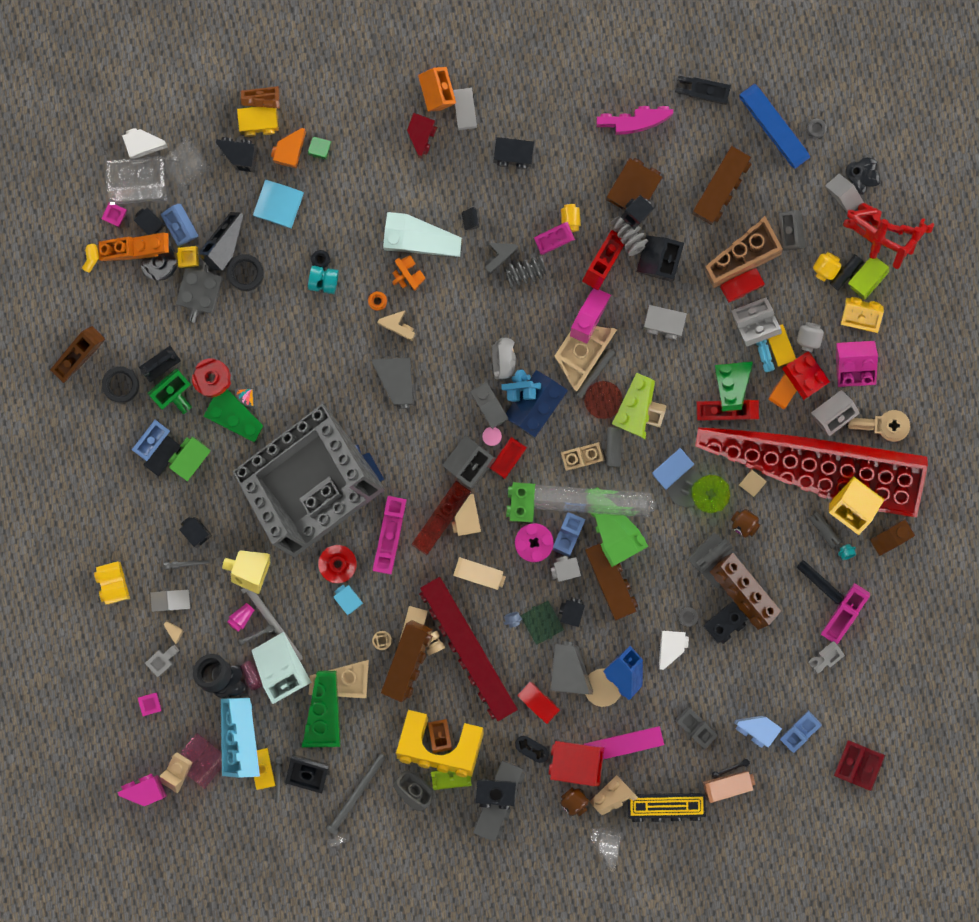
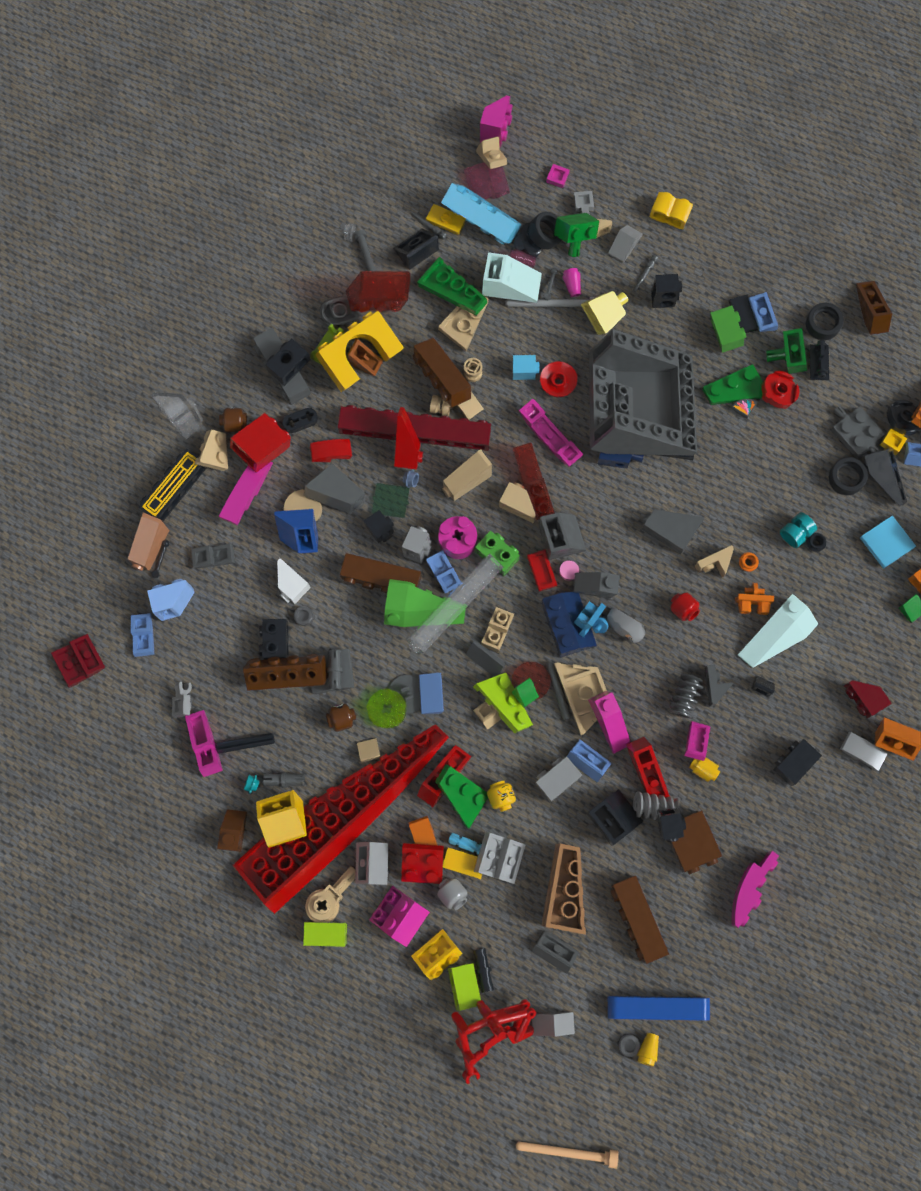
camera: 130 degrees right, 10 degrees down
(194, 646) = (575, 229): none -> green brick
(378, 765) = (379, 291): none -> clear red slope
(453, 323) = (685, 606): none -> red head
(489, 640) = (407, 443): none -> red slope
(618, 395) = (525, 693): none -> green slope
(631, 310) = (588, 760): none -> medium blue slope
(705, 89) = (734, 971): black hinge -> none
(710, 355) = (501, 796): none -> yellow head
(742, 284) = (540, 870): red slope -> none
(809, 111) = (649, 1050): none -> yellow cone
(827, 266) = (501, 956): yellow head -> none
(866, 175) = (555, 1056): black plate -> none
(905, 86) = (609, 1158): none -> light nougat piece
(912, 407) = (325, 934): none -> lime hinge

